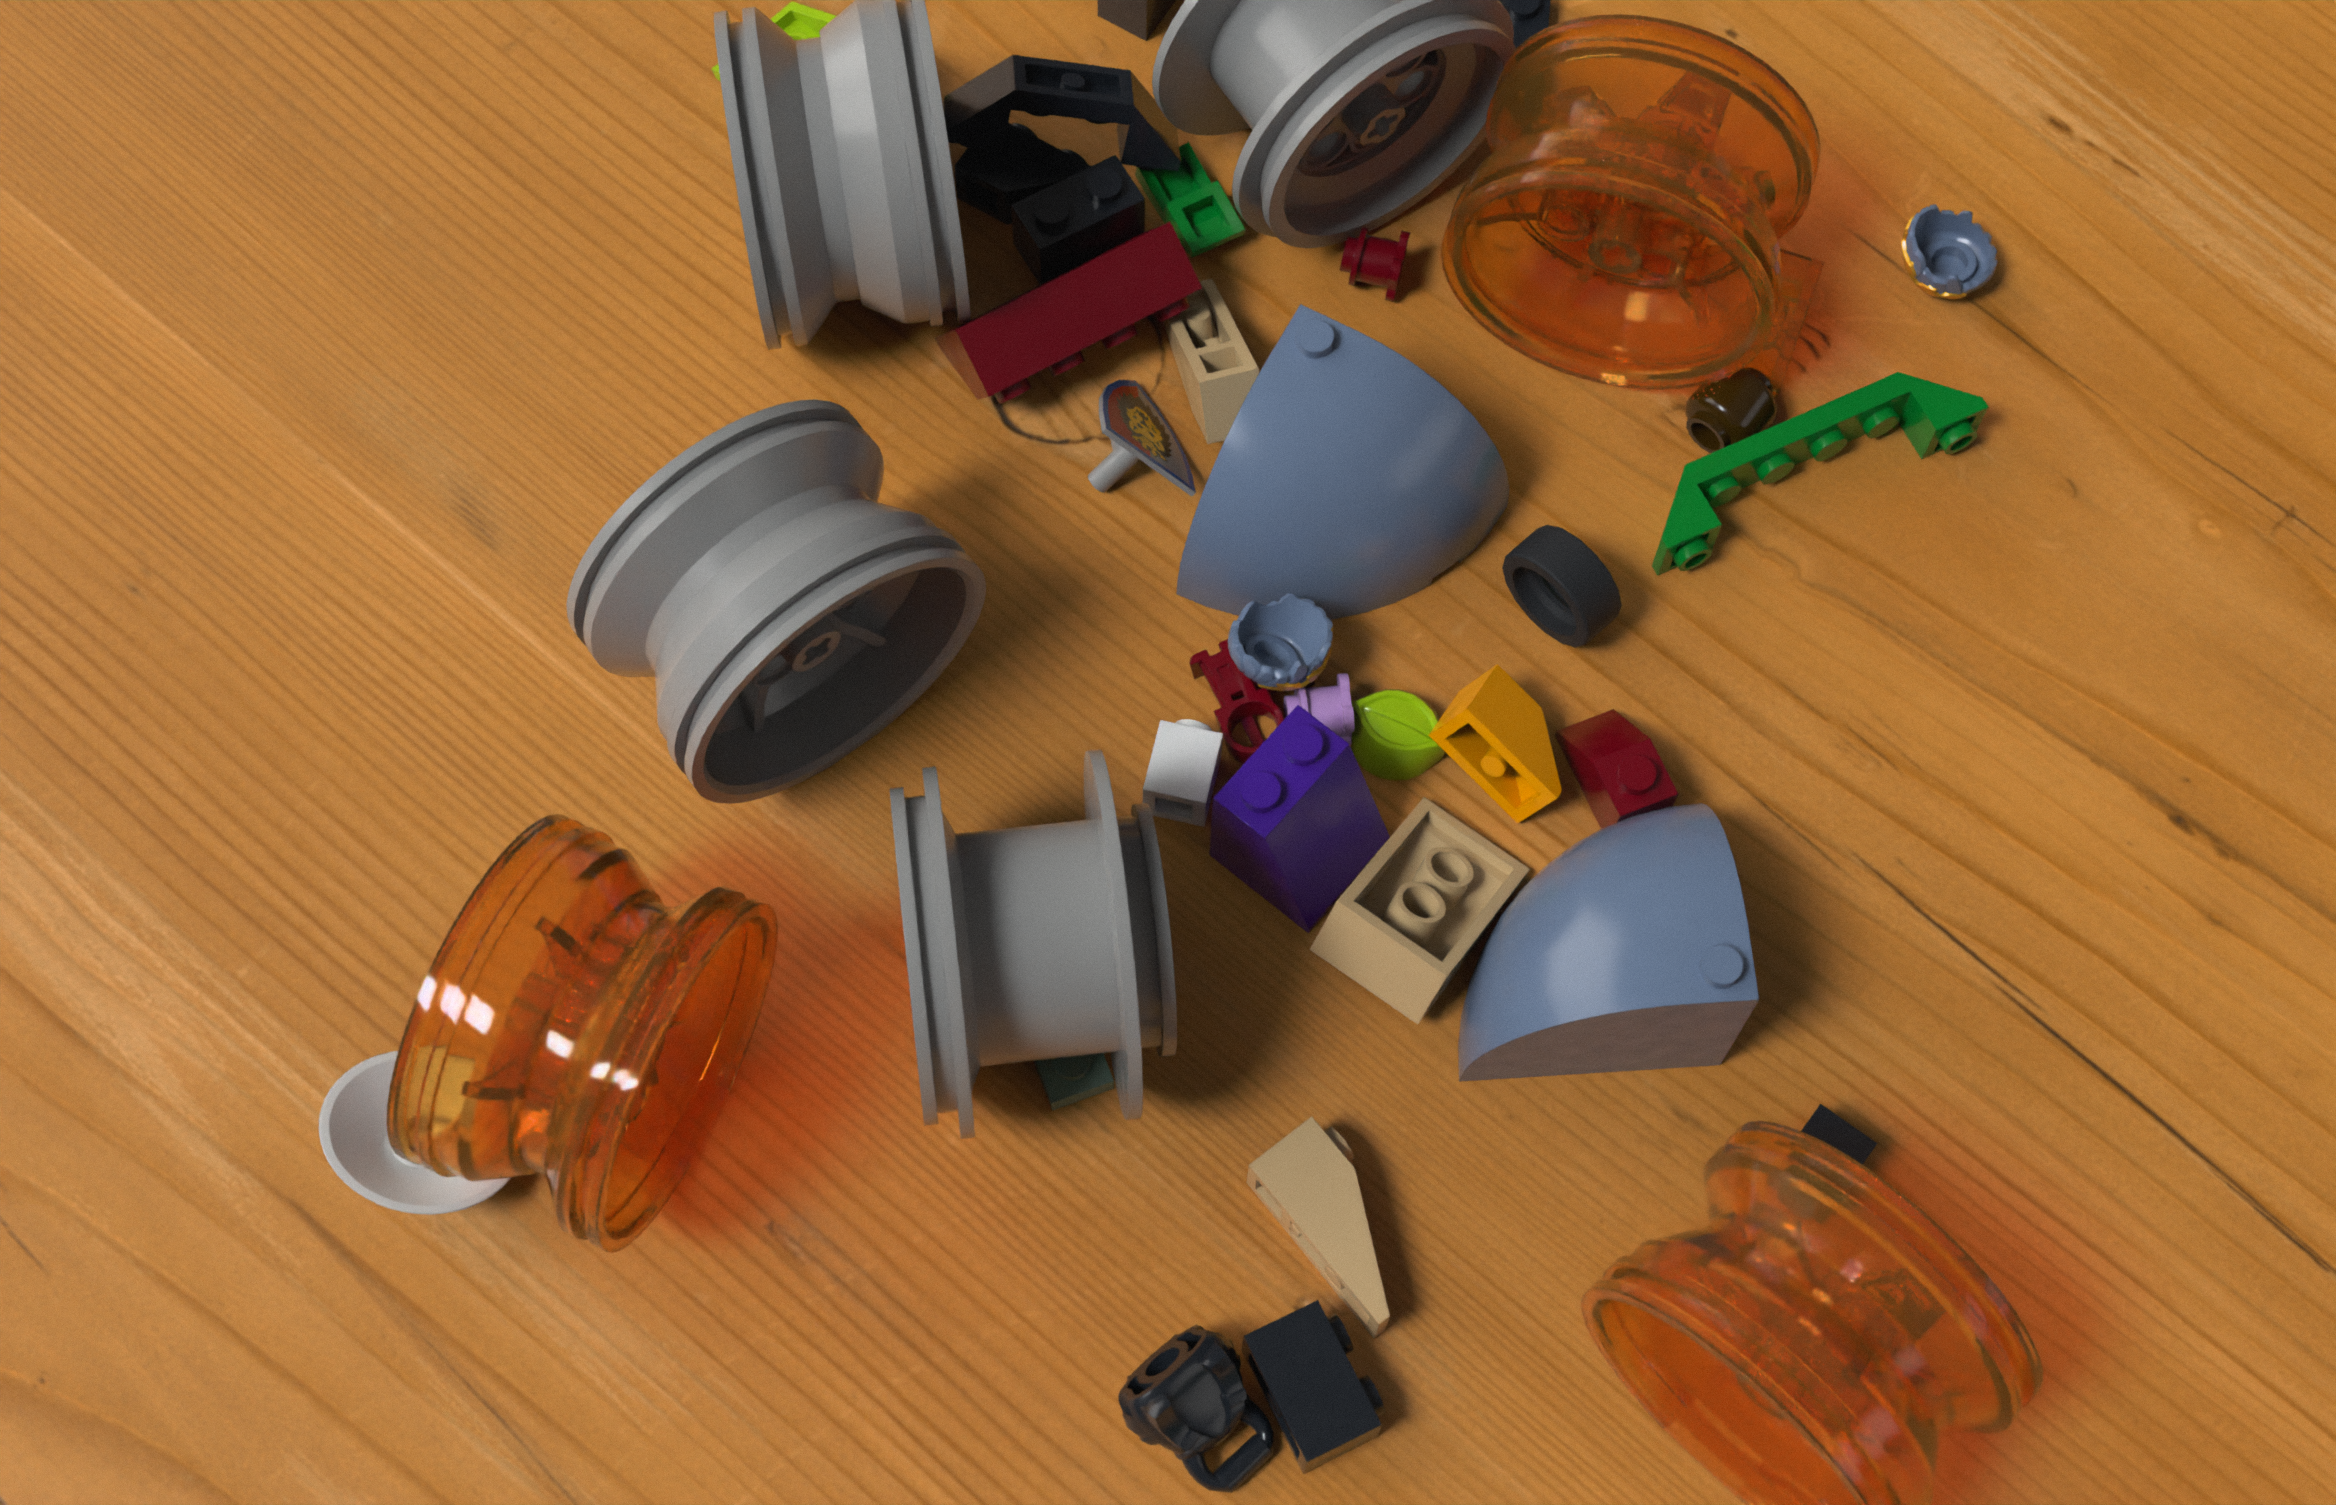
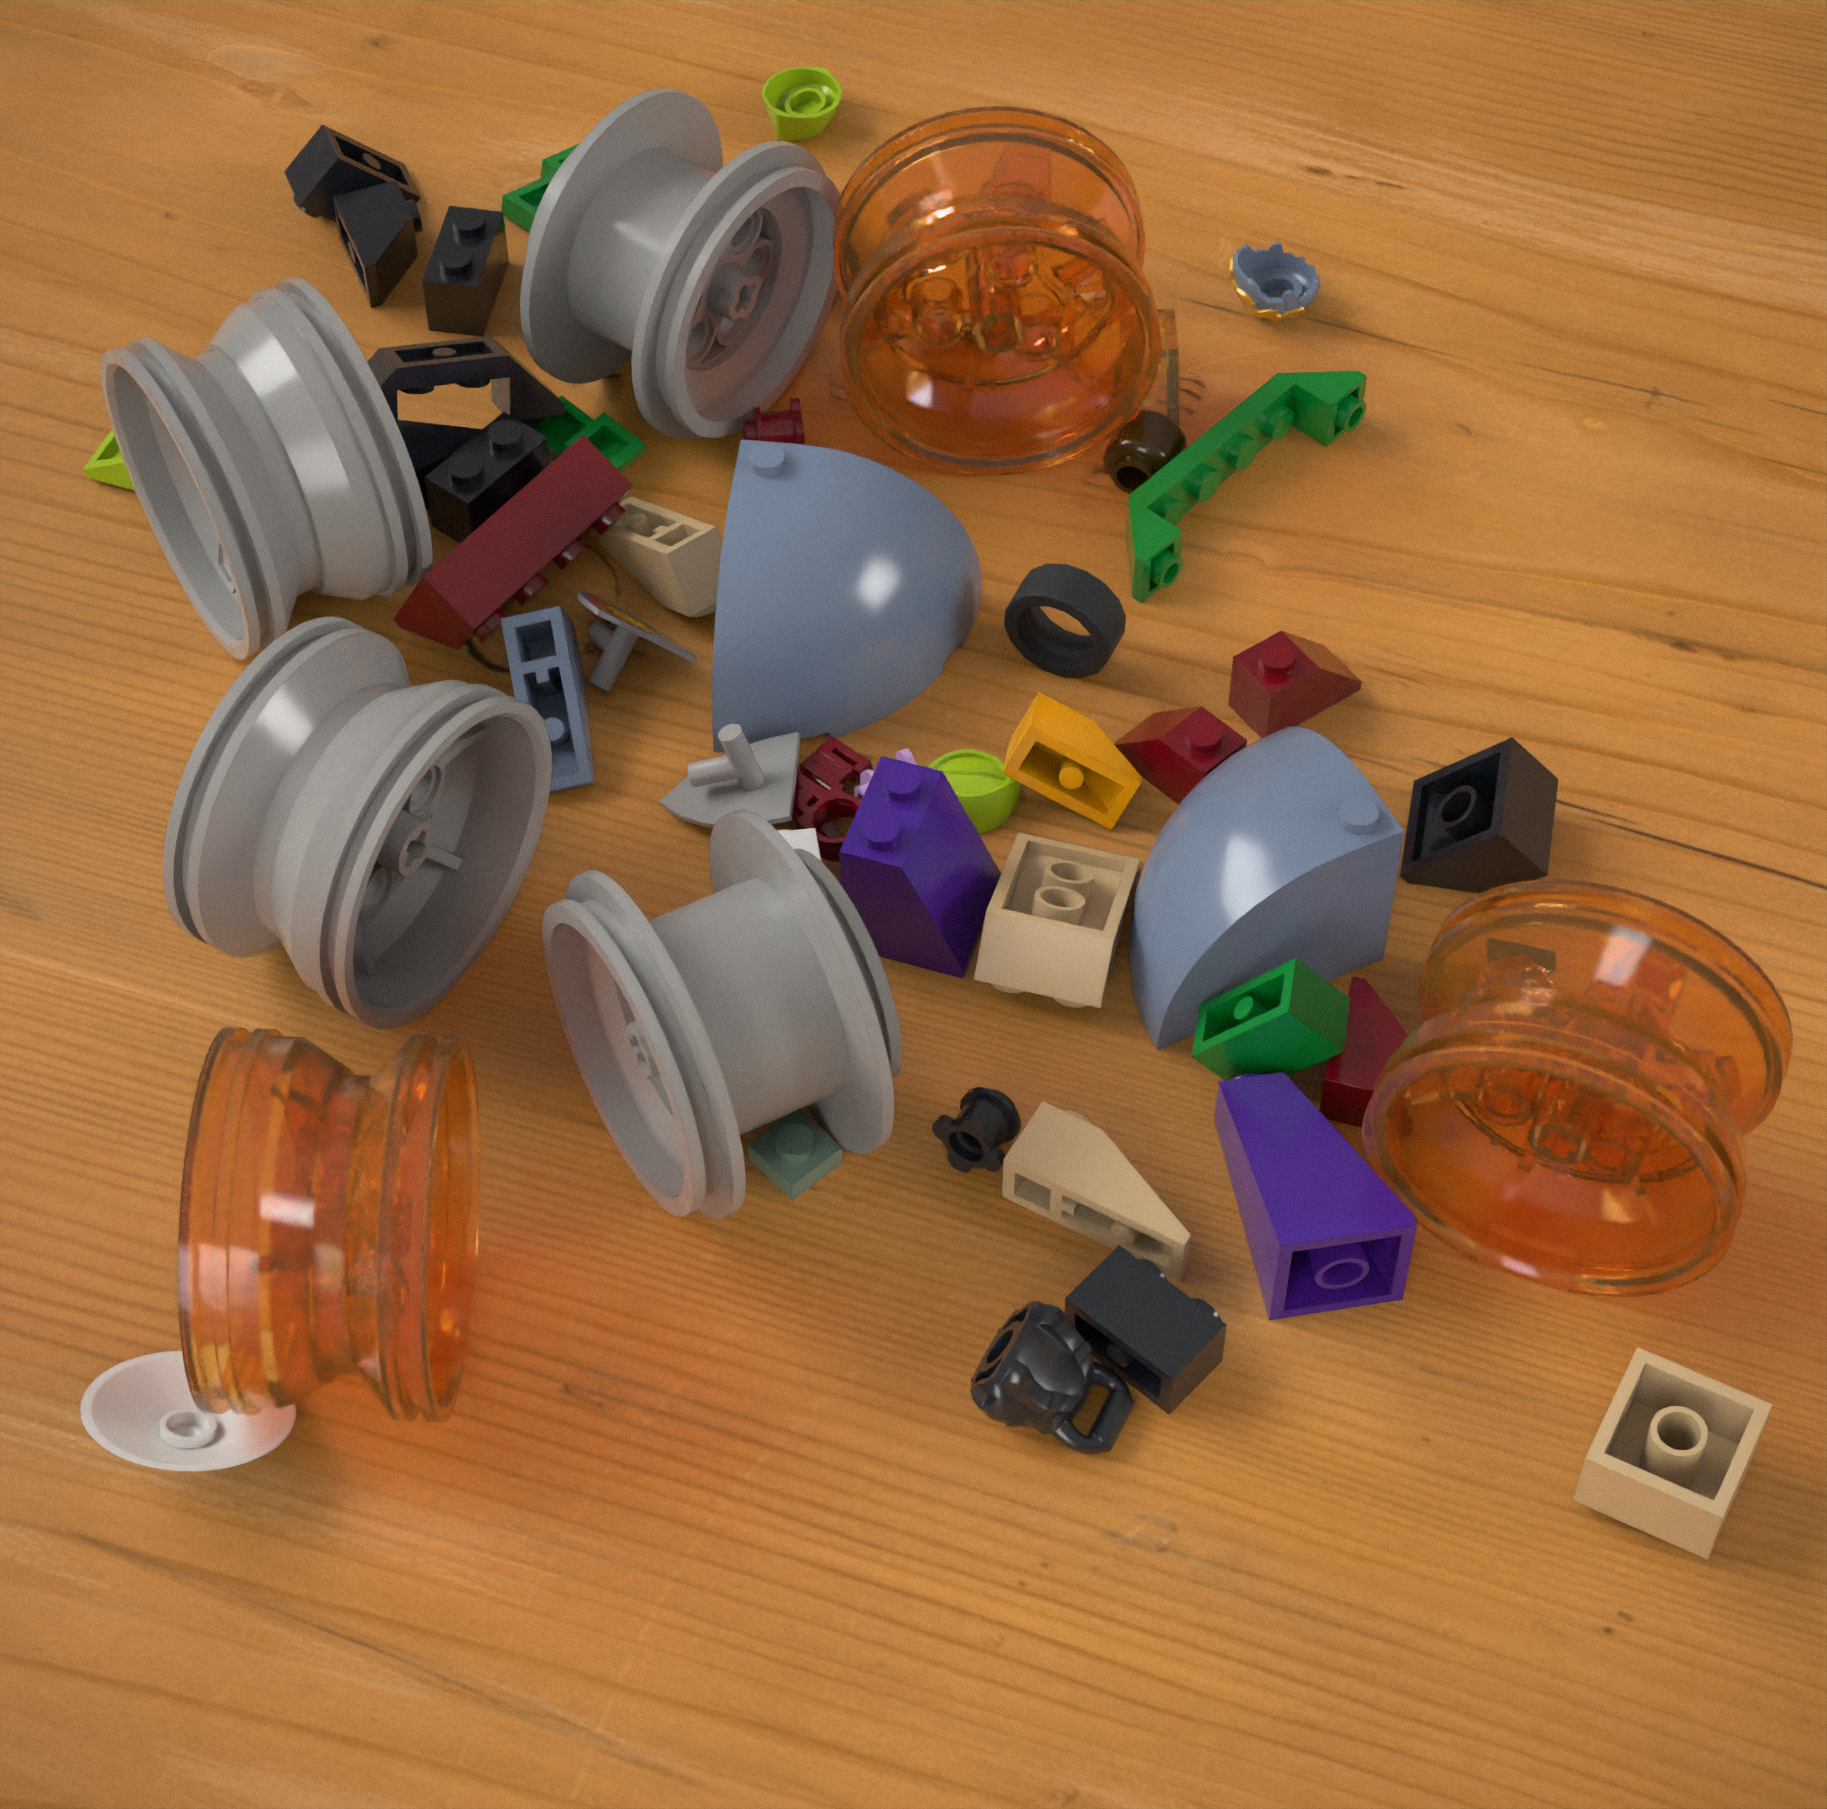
camera: 20 degrees left, 15 degrees down
(1038, 492) = (551, 679): none -> sand blue slope
(1175, 652) = (747, 777): none -> light grey shield
(1248, 1113) = (979, 1130): none -> black brick
(1281, 642) = (836, 738): sand blue hair -> none
(1518, 1321) = (1310, 1205): none -> dark purple slope
(1562, 1123) = (1272, 1024): none -> green brick
(1648, 1184) = (1369, 1042): none -> dark red slope
(1760, 728) = (1287, 682): none -> dark red slope
(1878, 960) = (1481, 821): none -> black slope

